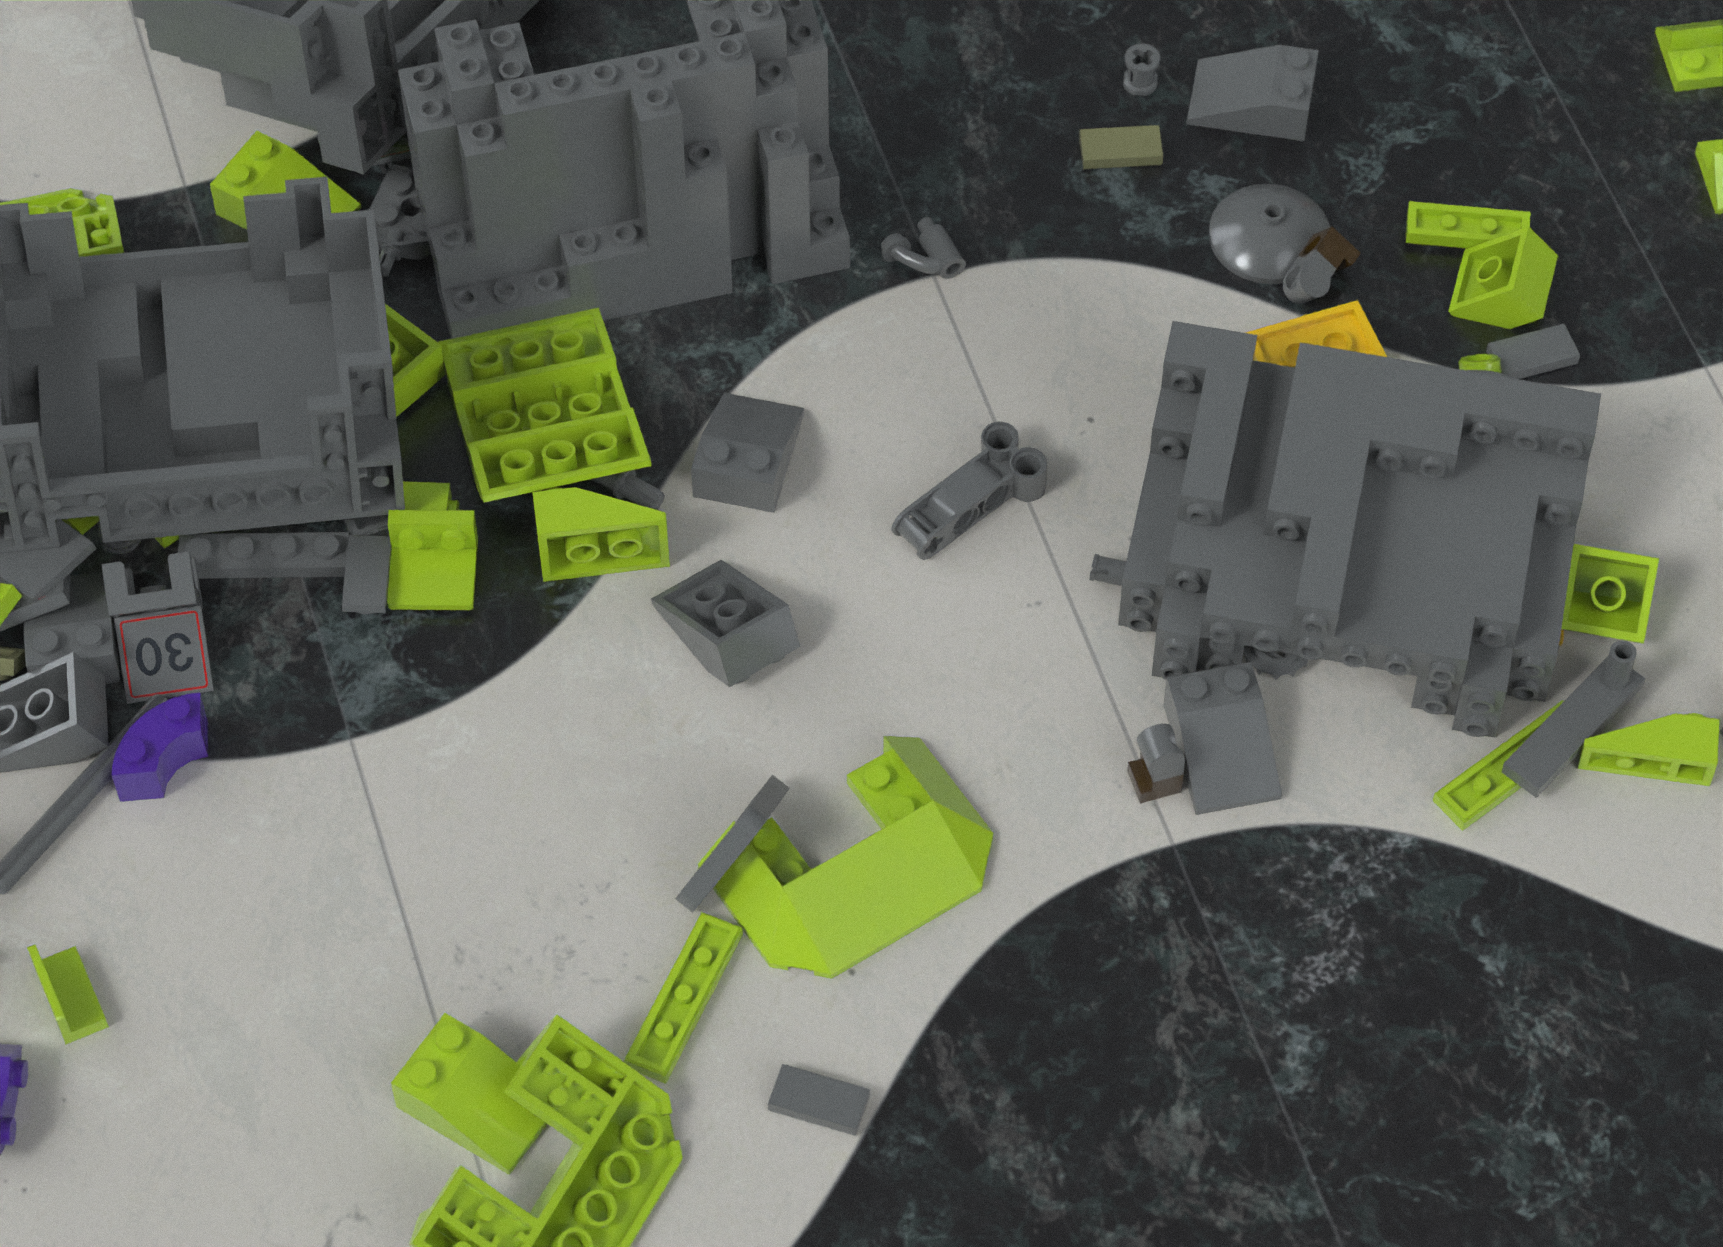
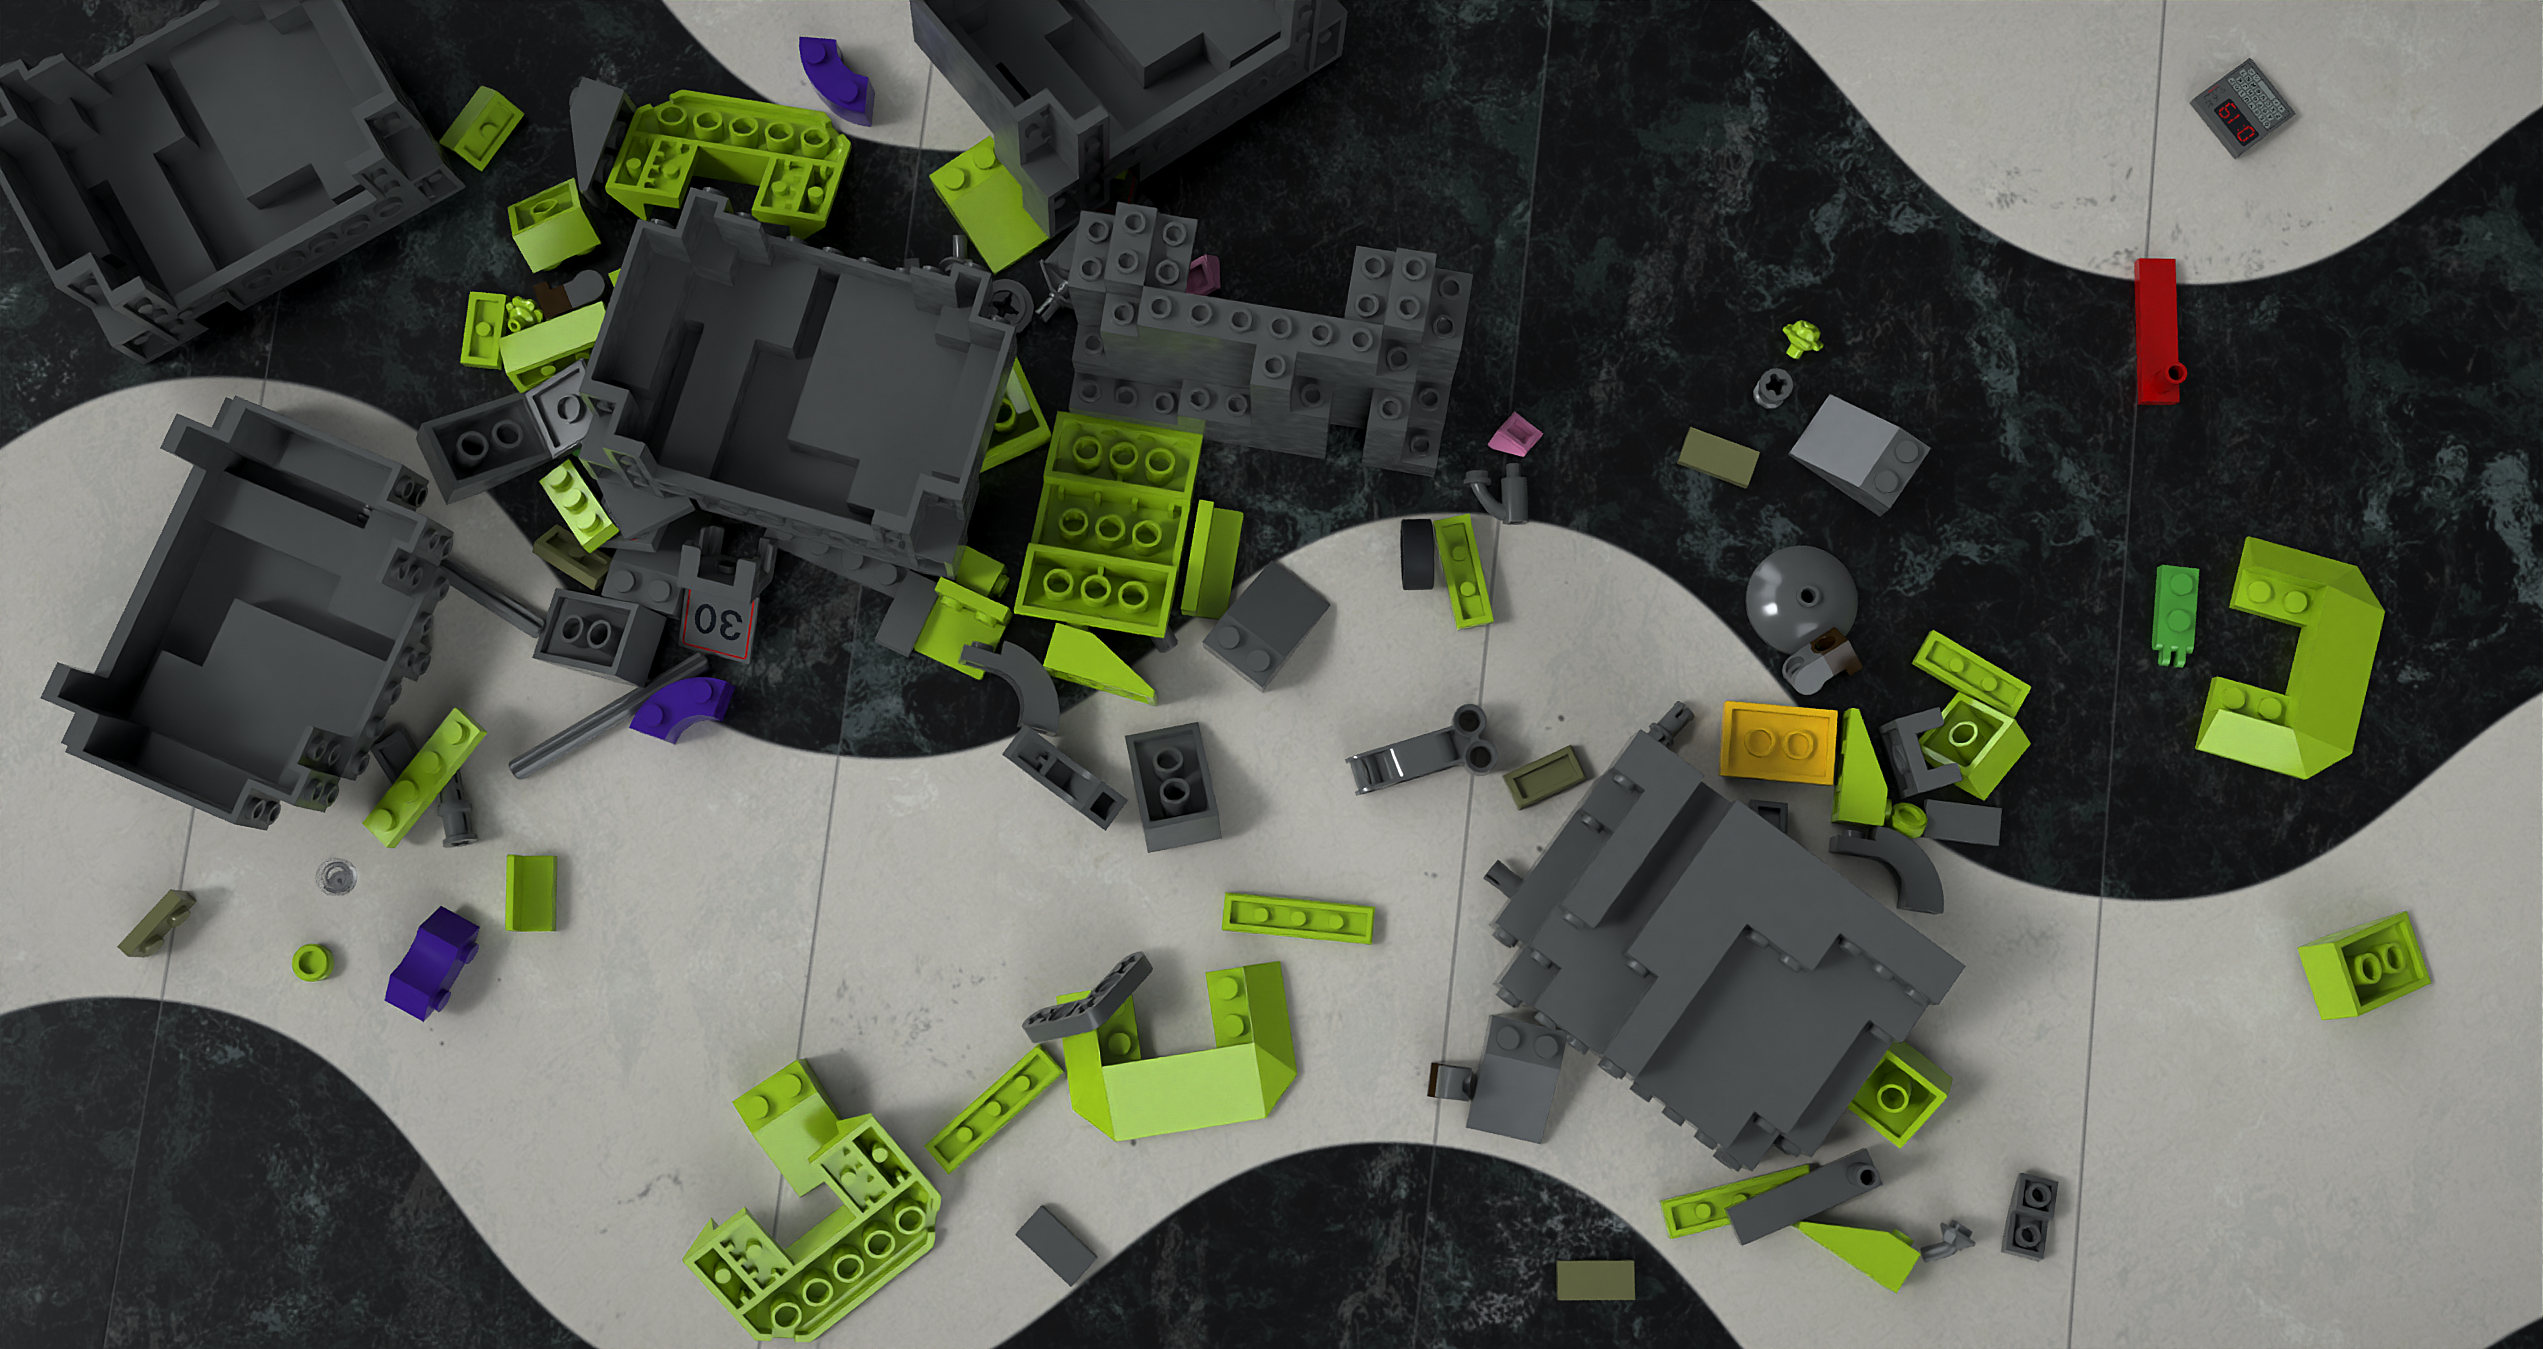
camera: 25 degrees right, 25 degrees up
(73, 151) = (837, 86): none -> dark purple brick
(518, 578) = (1028, 678): none -> dark grey arch
(607, 656) = (1064, 777): none -> dark grey arch
(662, 415) = (1211, 561): none -> lime panel
(870, 320) = (1417, 554): none -> black tyre
(911, 201) = (1515, 436): none -> bright pink slope
(918, 692) = (1298, 918): none -> lime tile
(923, 327) = (1463, 572): none -> lime plate
(1102, 472) = (1544, 777): none -> olive tile
(1146, 20) = (1803, 338): none -> lime plant
(1405, 334) = (1859, 782): none -> lime slope
(1409, 895) = (1595, 1279): none -> olive tile
(1448, 305) = (1907, 757): none -> dark grey panel
(1627, 111) = (2175, 613): none -> bright green hinge

